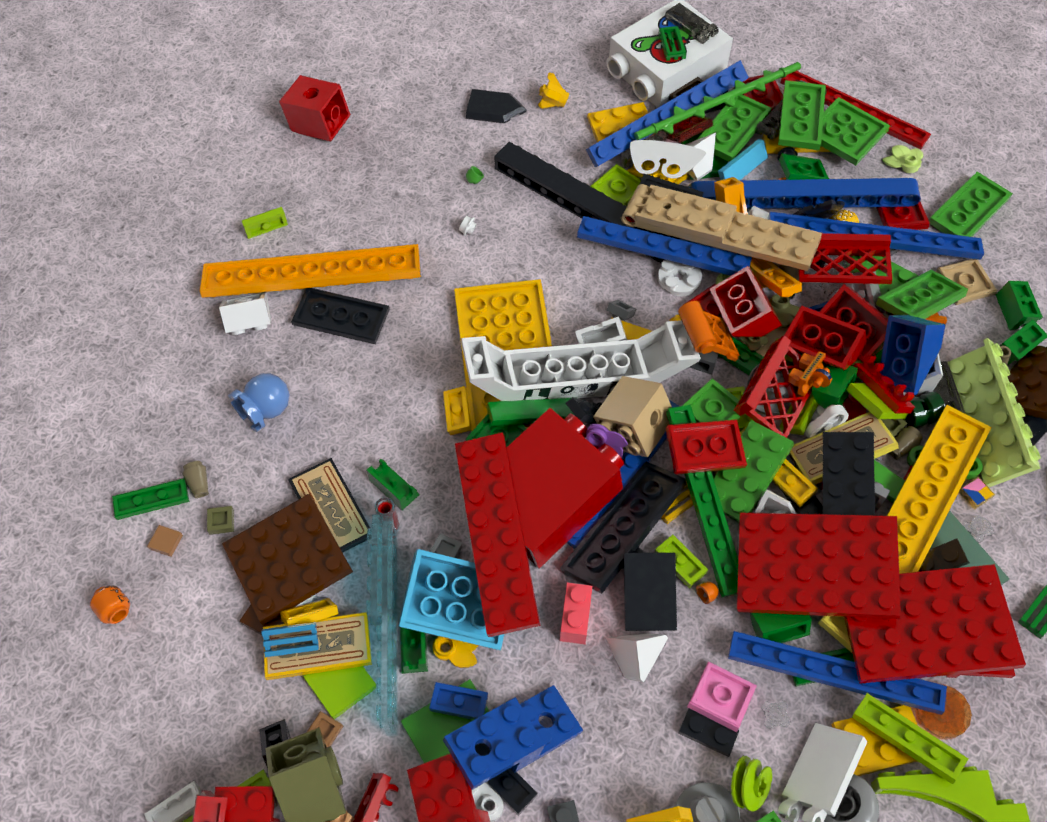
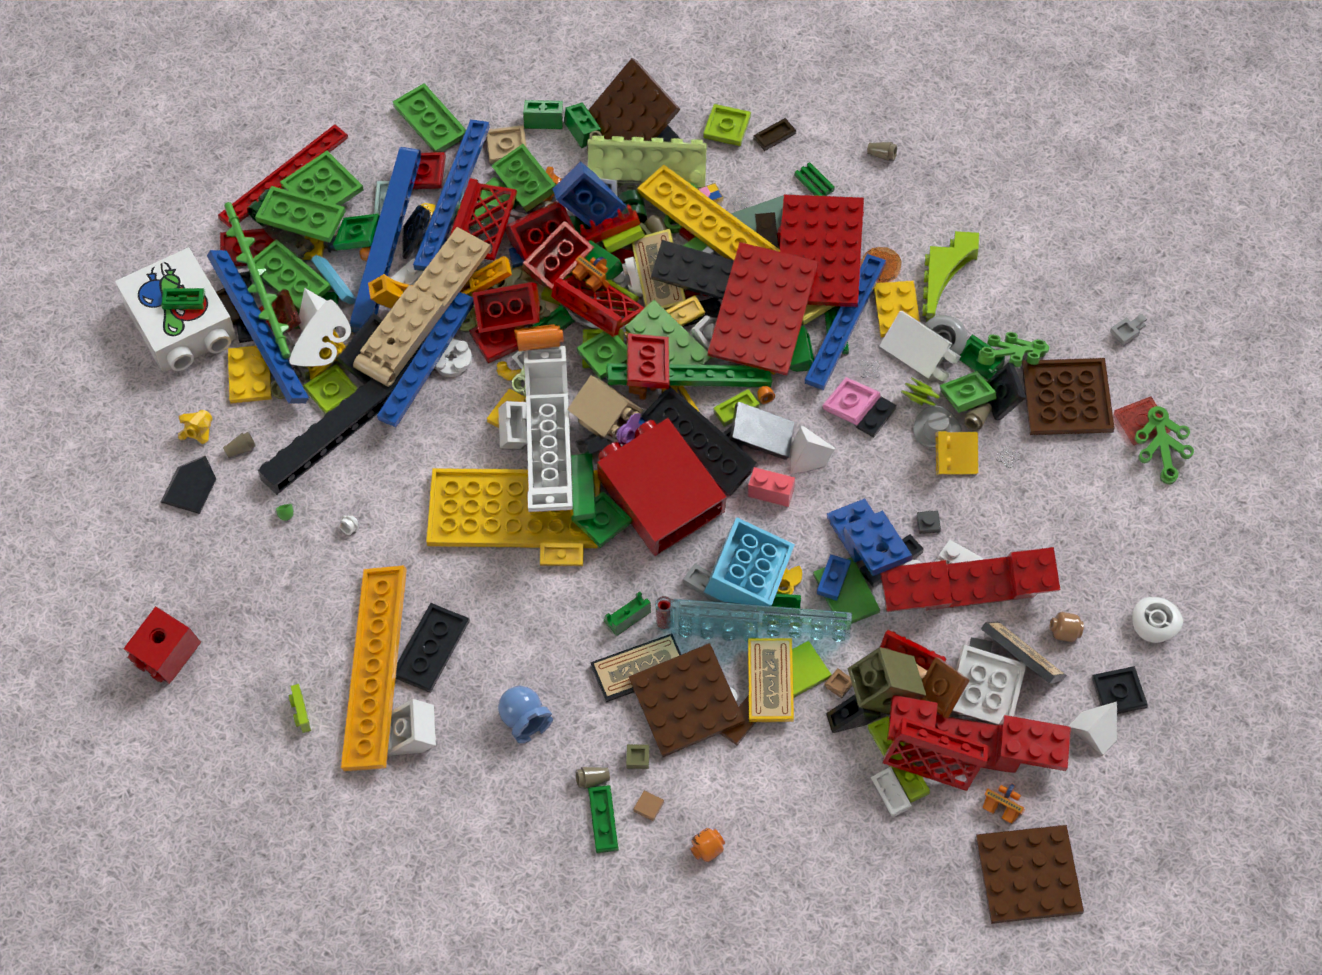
camera: 80 degrees left, 0 degrees up
(267, 643) = (770, 693): dark azure tile -> none
(309, 612) = (744, 680): yellow tile -> none
(496, 536) = (703, 520): red plate -> none
(542, 131) = (241, 444): none -> dark tan cone
(621, 310) = (481, 408): dark grey plate -> none
(691, 23) = (161, 276): clear smoke plate -> none
(904, 157) = (357, 152): yellowish green plate -> none
(910, 738) = (902, 285): lime plate -> none

